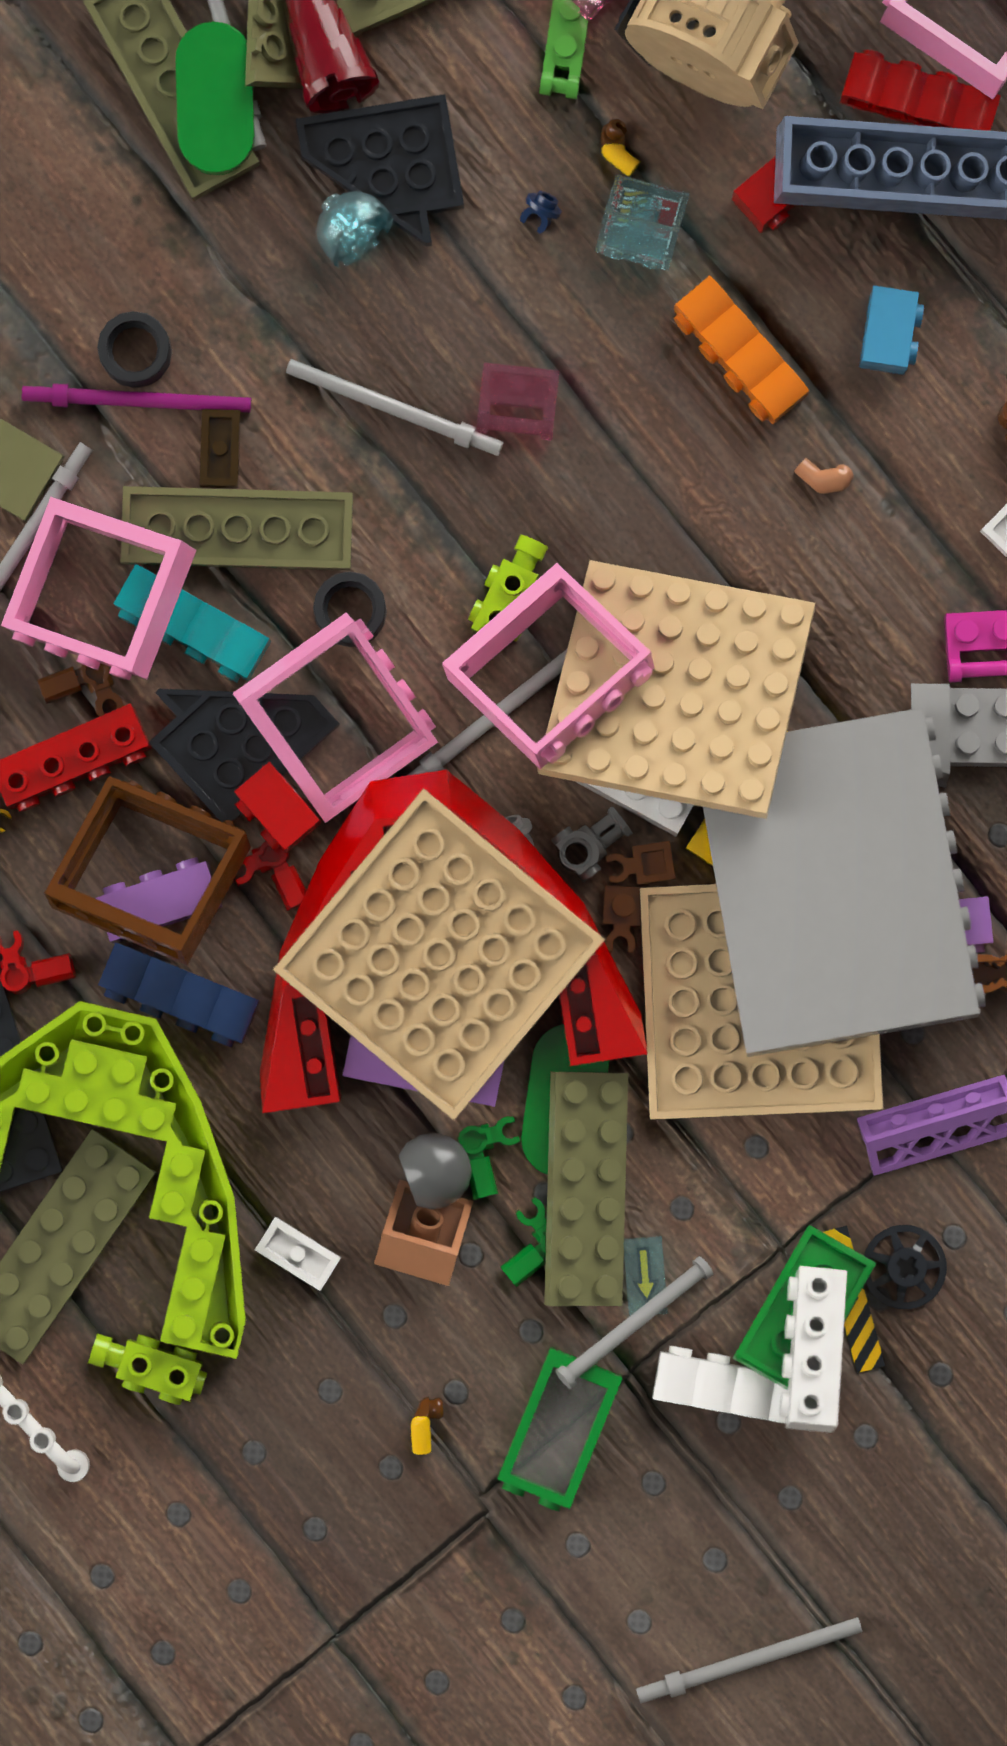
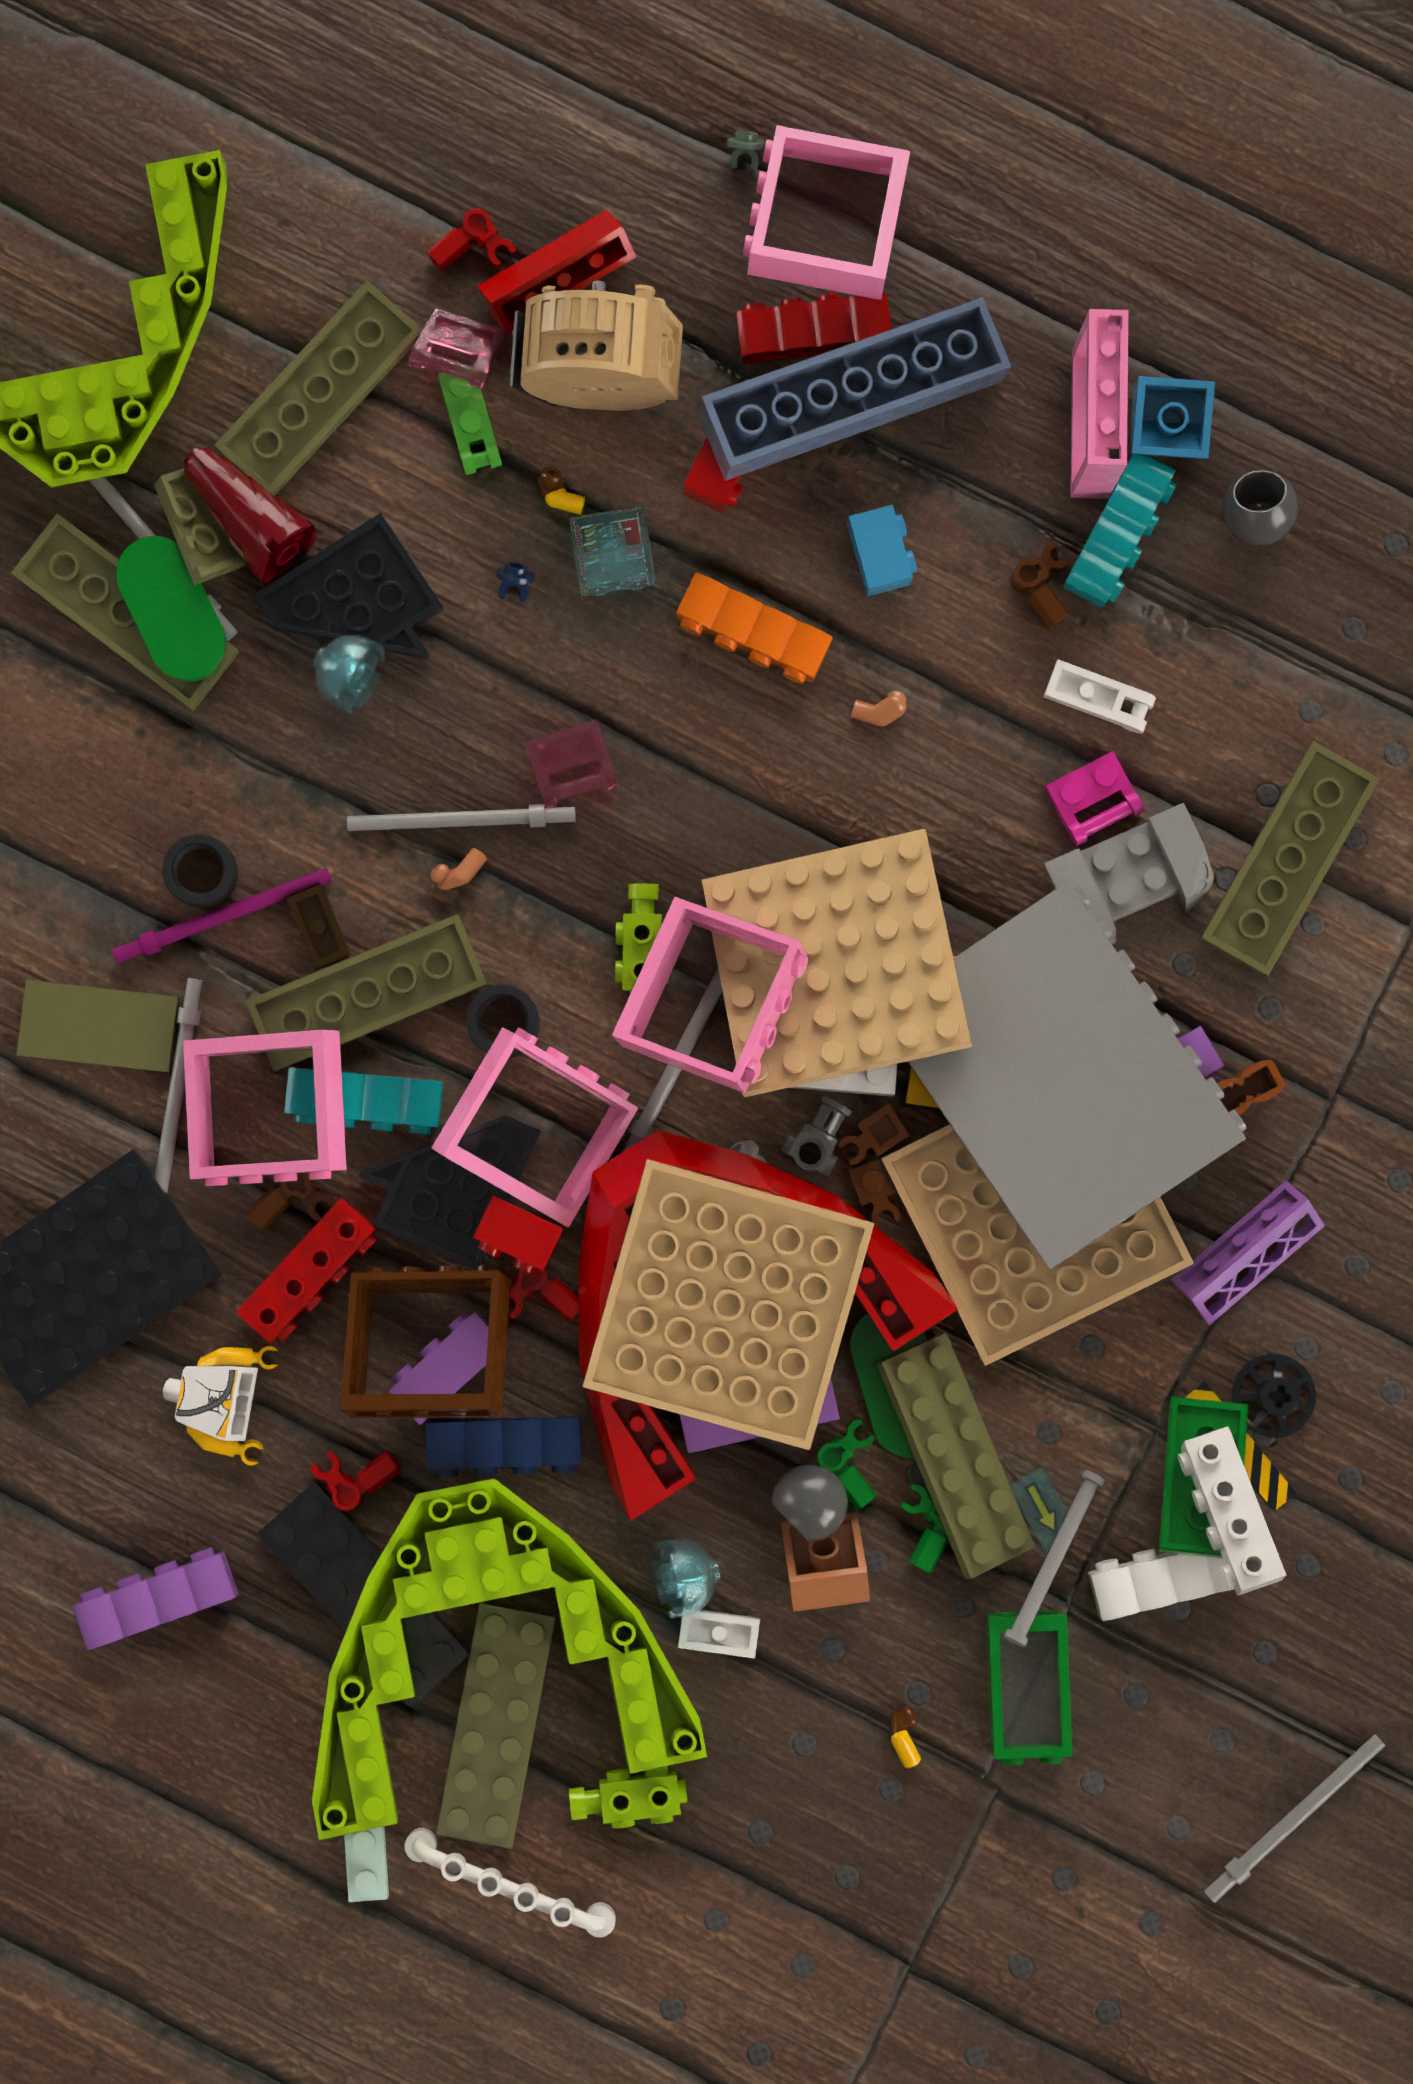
camera: 30 degrees left, 0 degrees up
(289, 1187) = (684, 1576): none -> clear light blue cylinder
(370, 458) = (461, 875): none -> nougat arm

